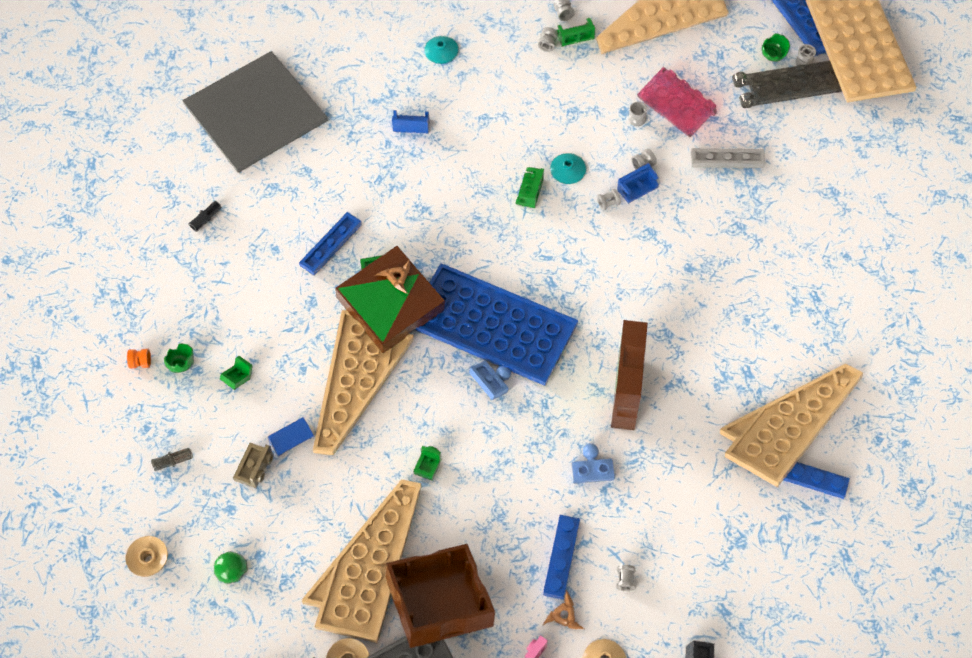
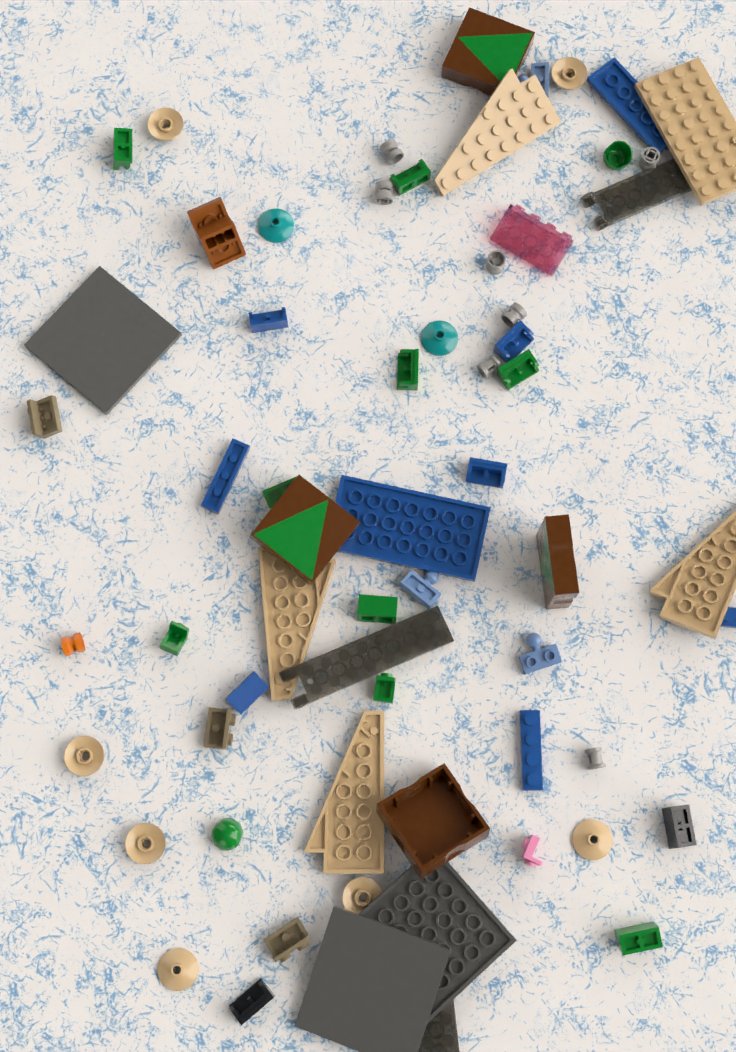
camera: 15 degrees left, 15 degrees up
(113, 453) = (75, 751): none -> tan dish
(172, 459) = (138, 740): clear smoke axle -> none
(179, 161) = (44, 417): none -> dark tan bracket
(179, 359) = (113, 636): green hair -> none
(204, 216) = (89, 473): black axle -> none
(384, 42) = (216, 233): none -> dark orange bracket
(398, 283) = (300, 507): medium nougat piece -> none
(420, 428) = (369, 656): none -> clear smoke hinge
(441, 389) = (377, 609): none -> green hinge
(570, 620) = (548, 798): medium nougat piece -> none
(582, 289) = (486, 472): none -> blue hinge
(636, 207) = (518, 369): none -> green hinge
(727, 158) = (595, 294): light grey plate -> none

